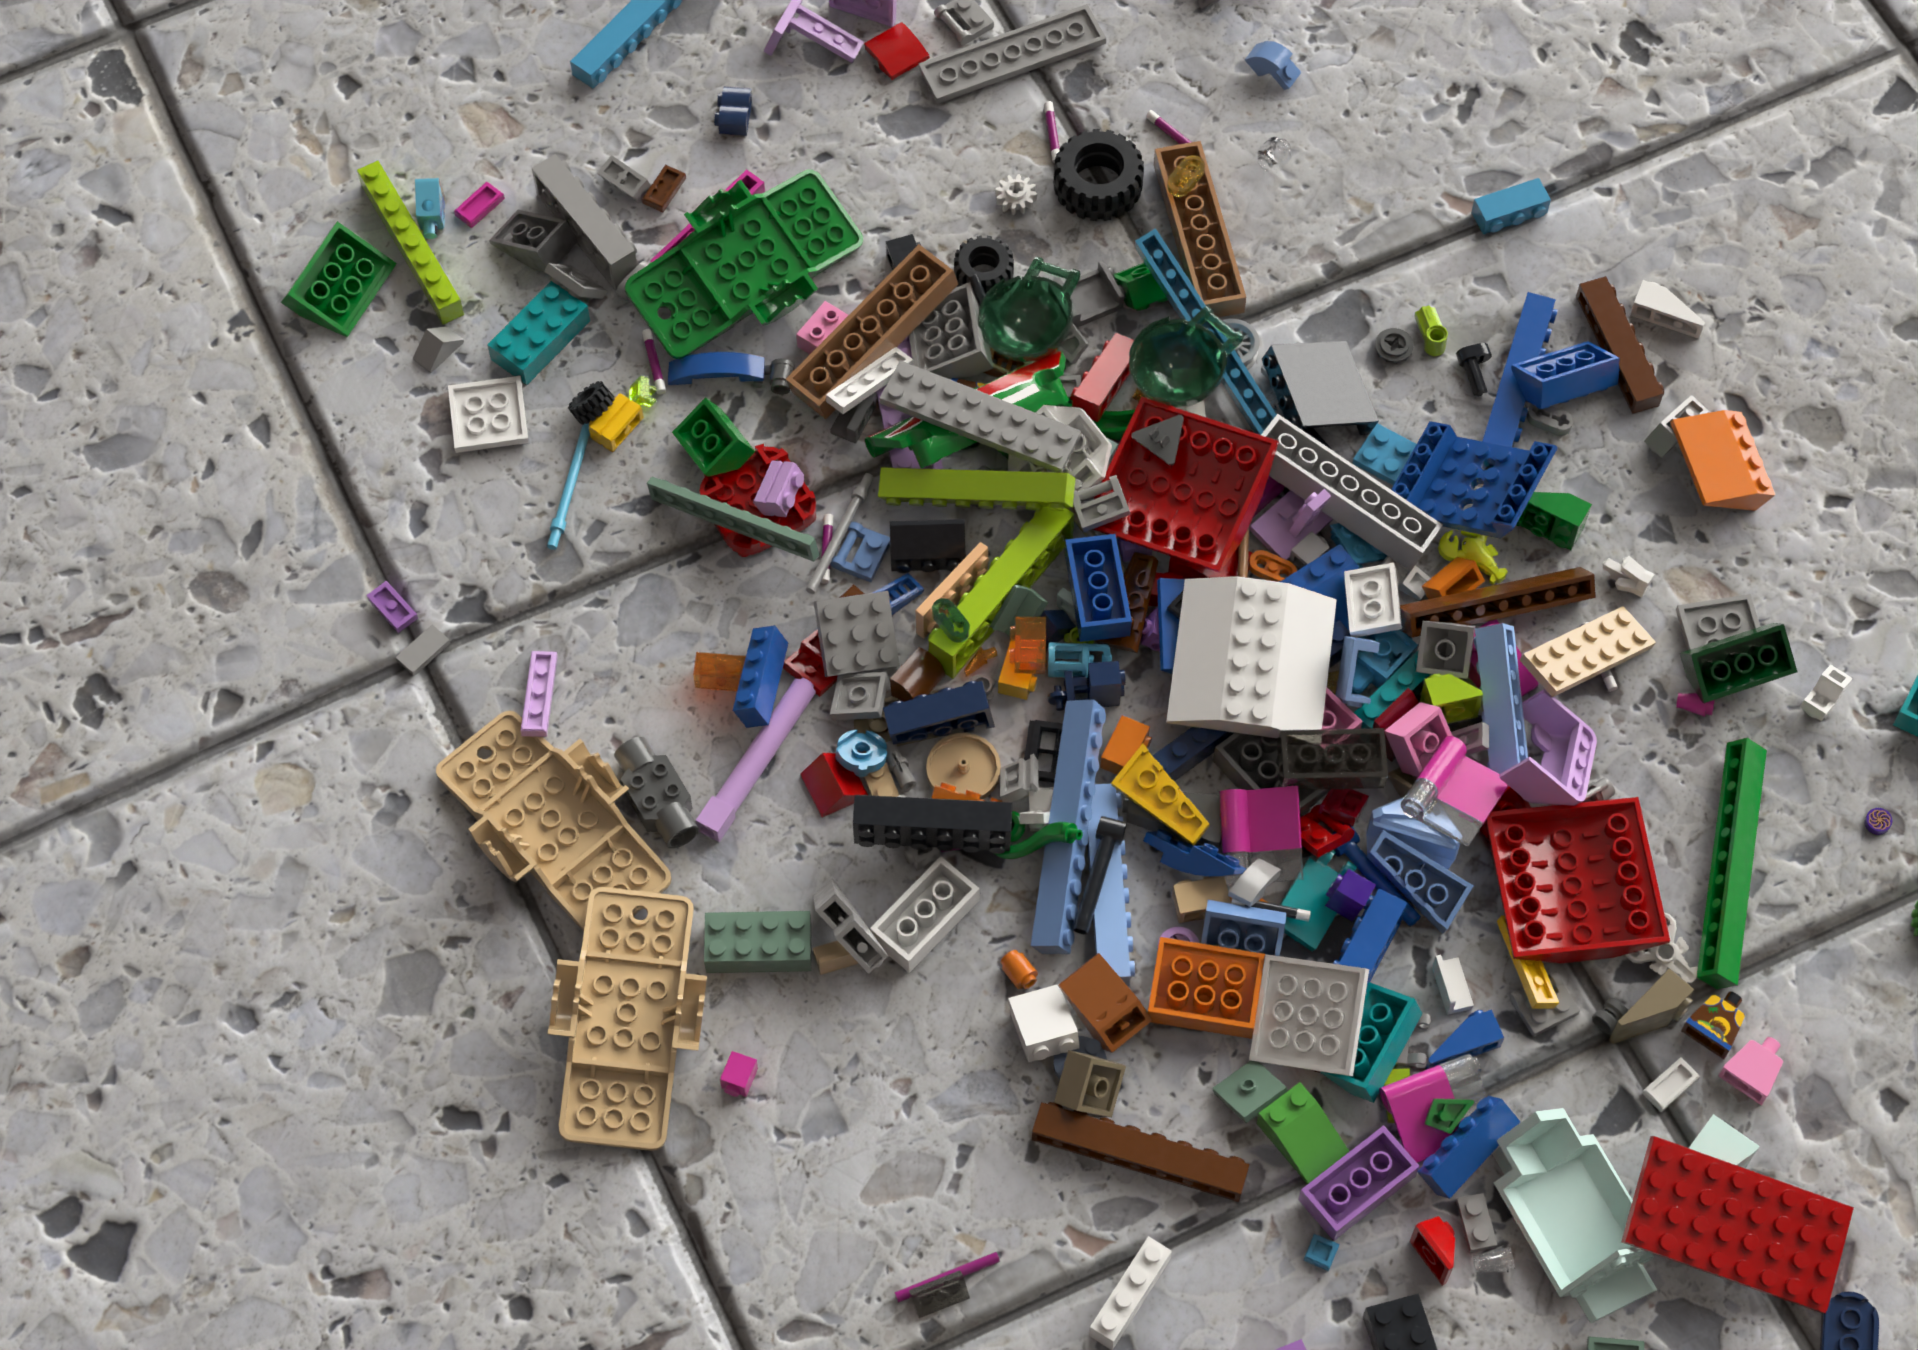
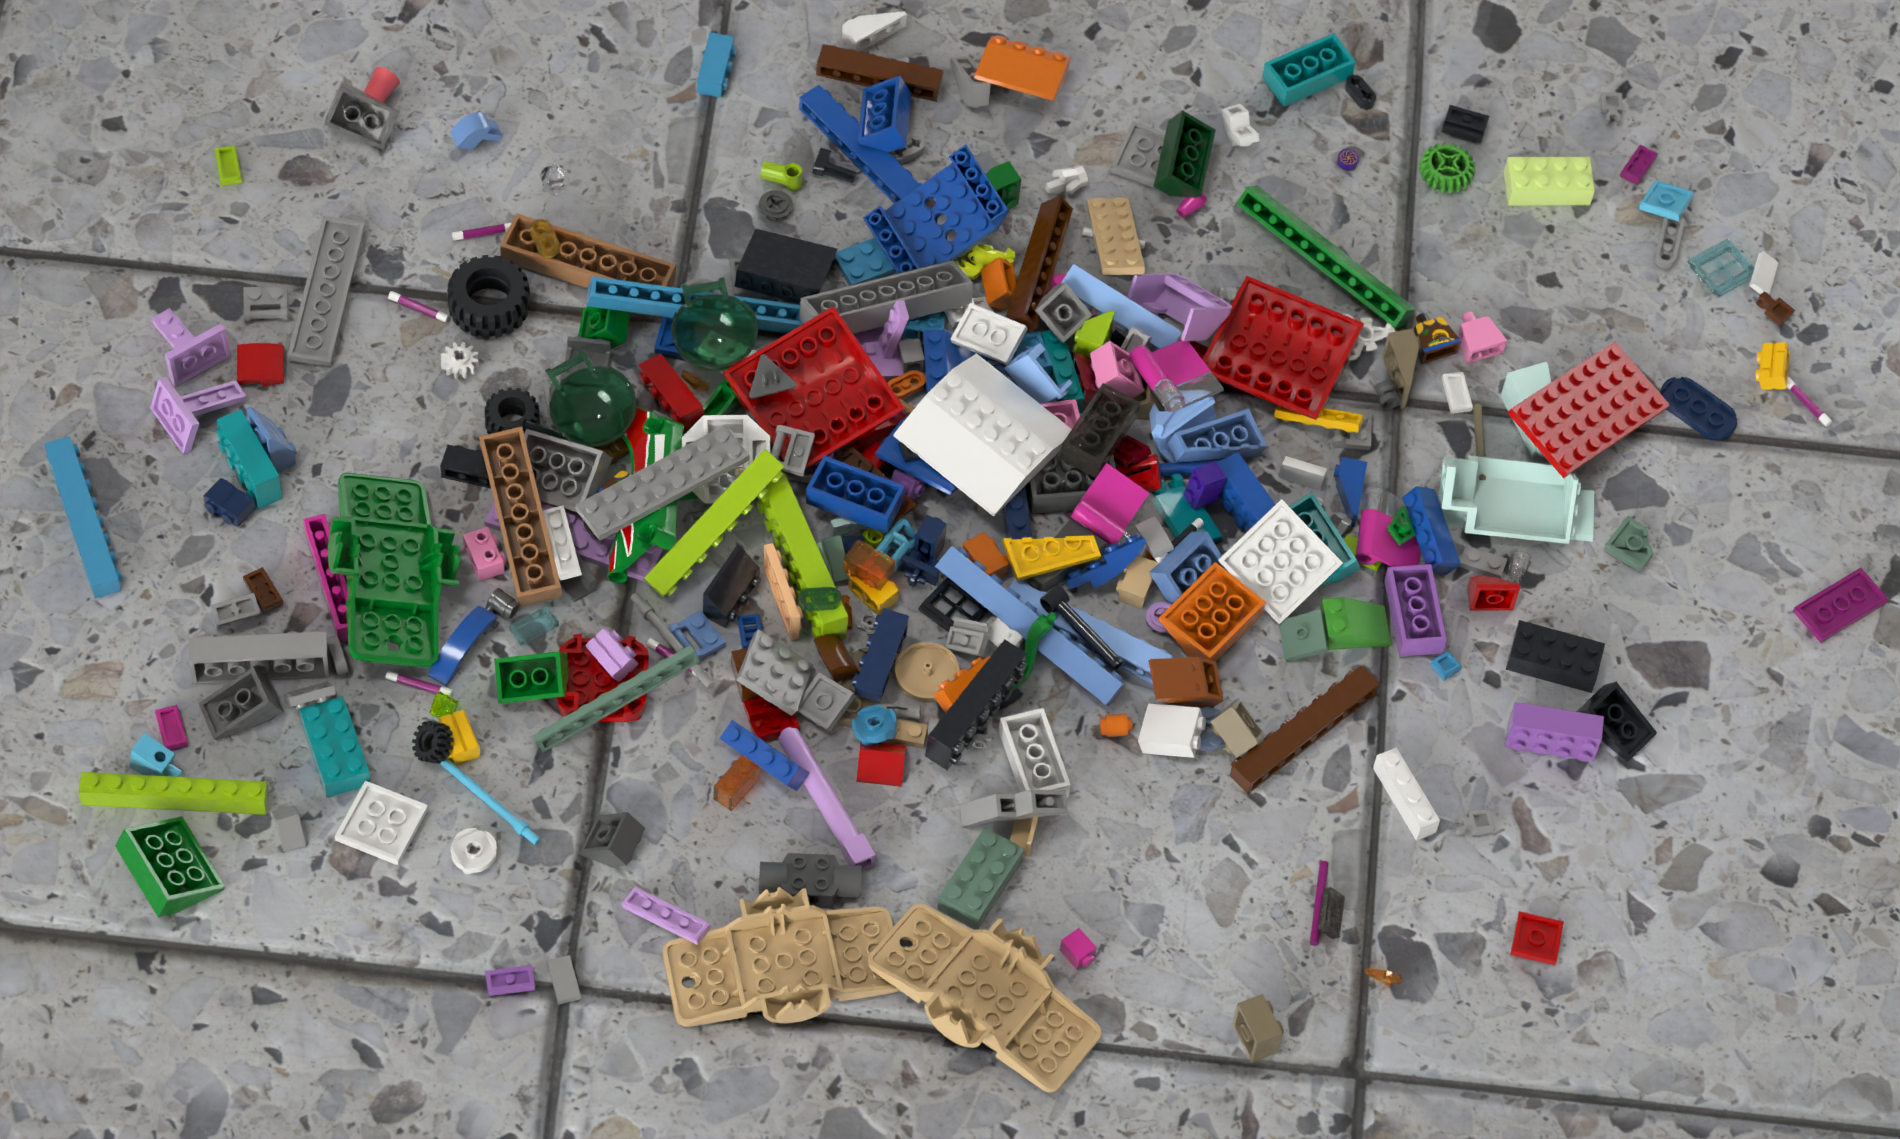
camera: 65 degrees left, 5 degrees down
(508, 514) = (477, 862): none -> white plate
(591, 606) = (613, 839): none -> dark grey slope
(750, 1291) = (1257, 1028): none -> dark tan brick
(779, 414) = (533, 625): none -> clear light blue tile
(783, 96) = (248, 459): none -> teal brick
(812, 98) = (272, 439): none -> medium blue slope
(1633, 1135) = (1479, 436): none -> dark tan bar

